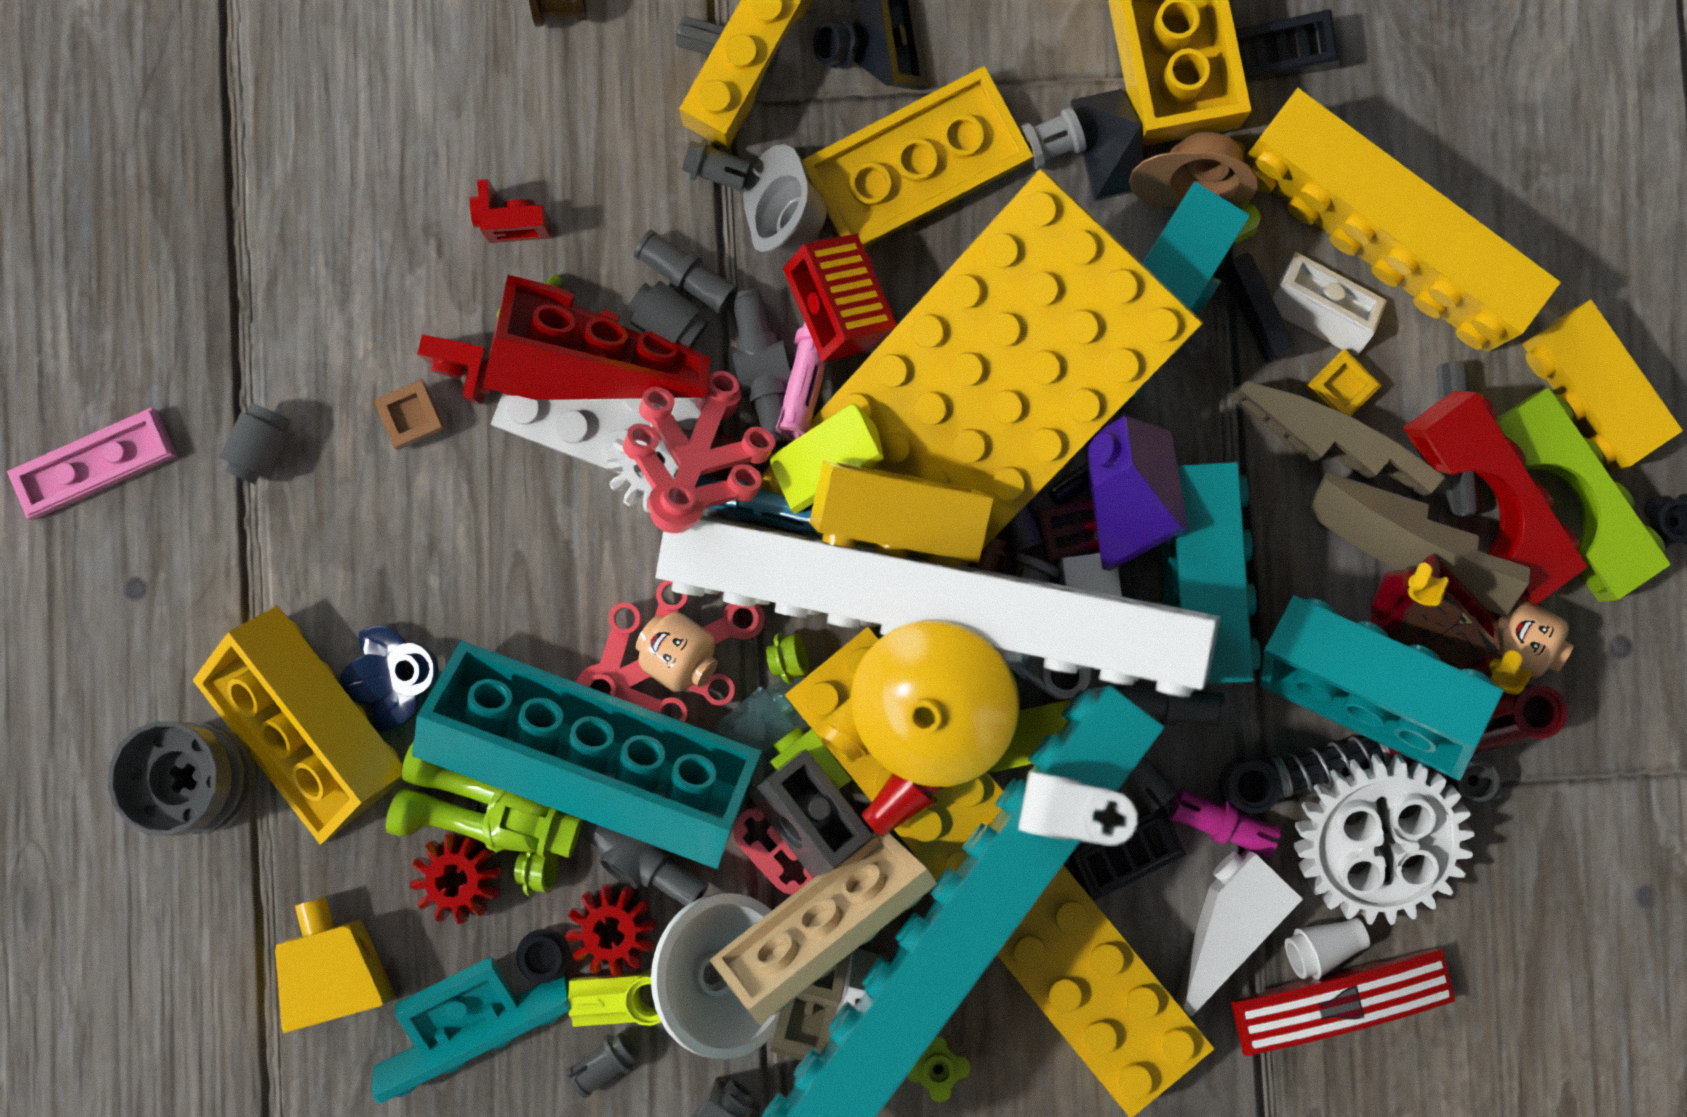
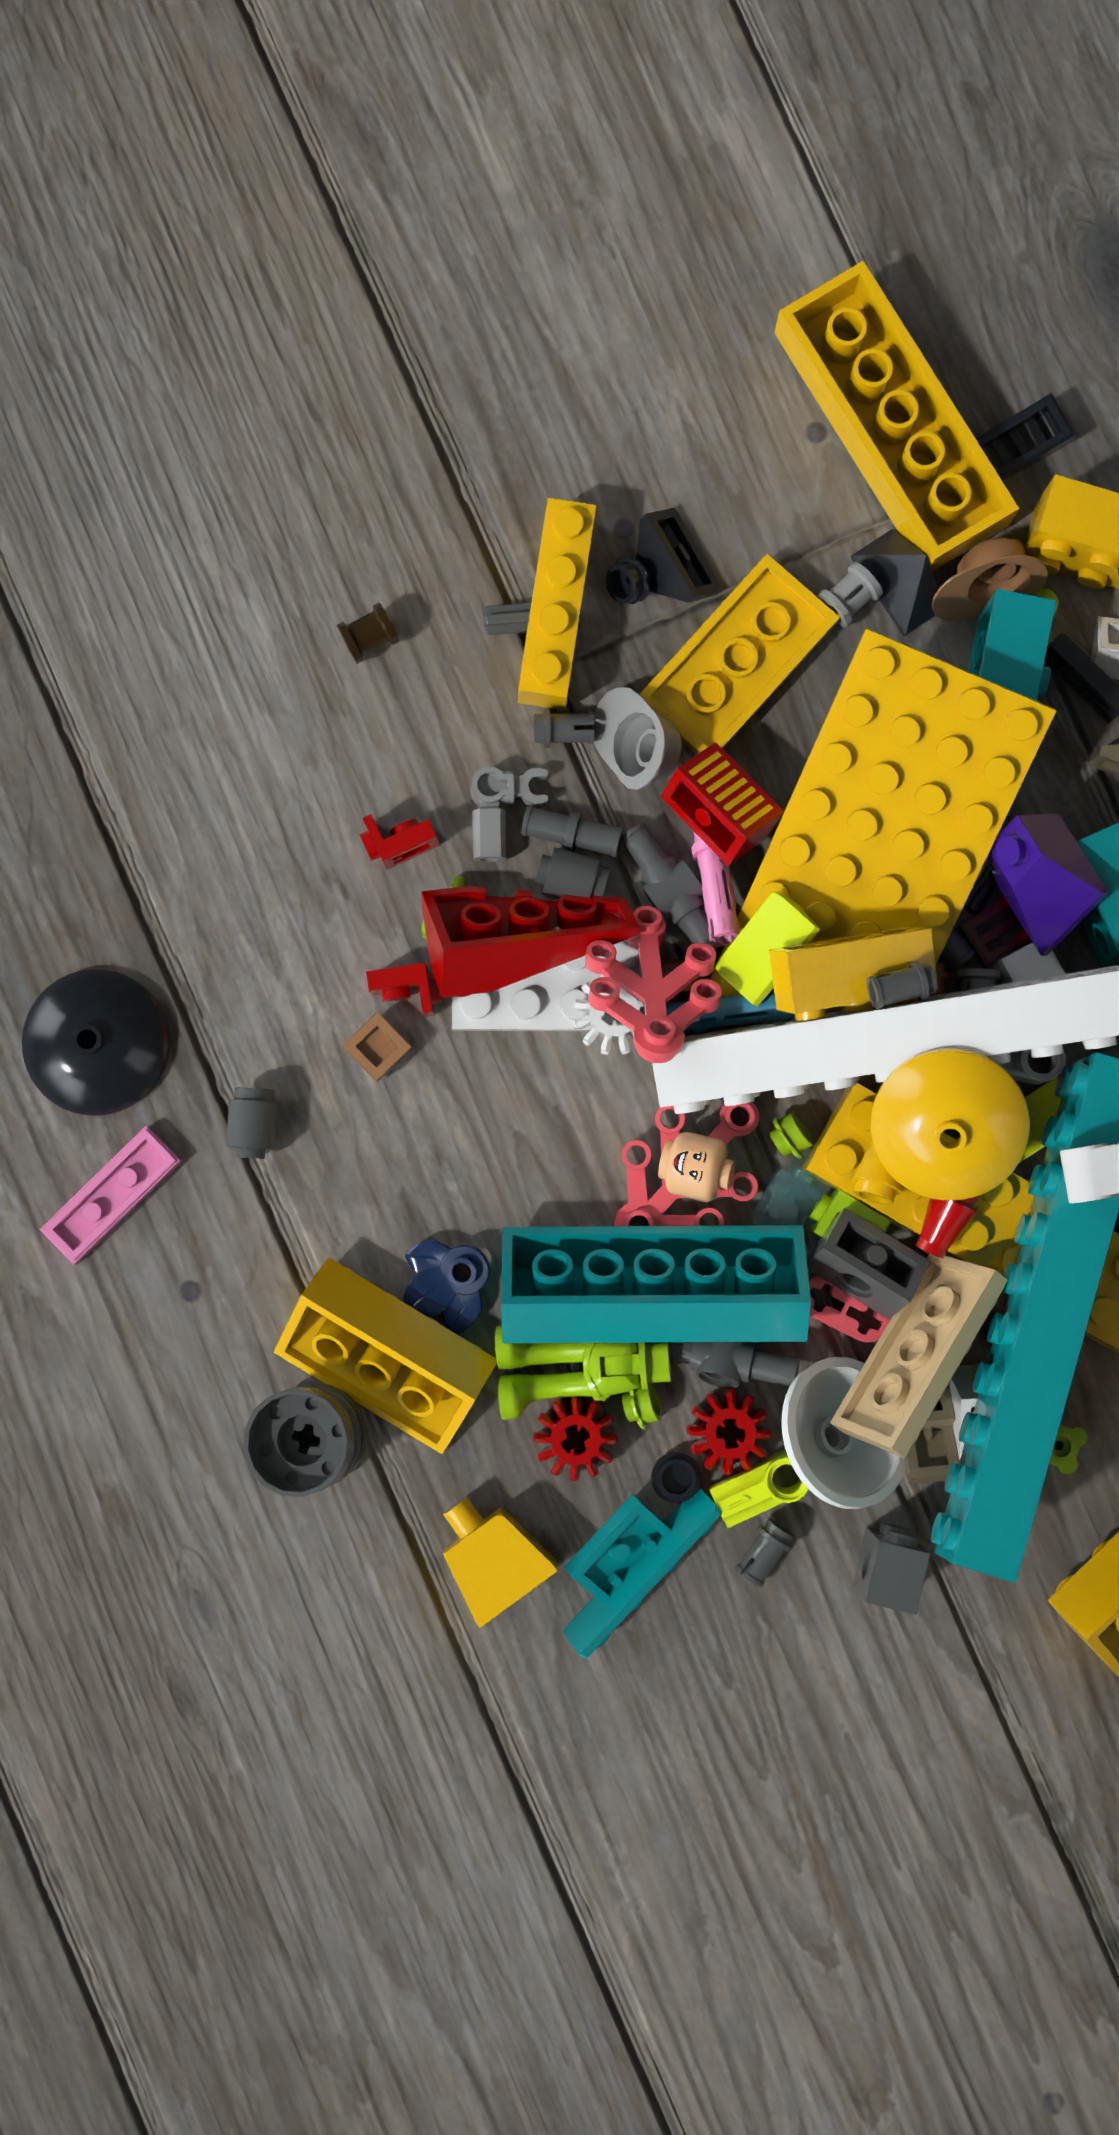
camera: 20 degrees left, 0 degrees up
(161, 325) = (128, 1049): none -> black dish
(621, 201) = (490, 789): none -> light grey bar
(939, 544) = (902, 985): none -> dark grey pin

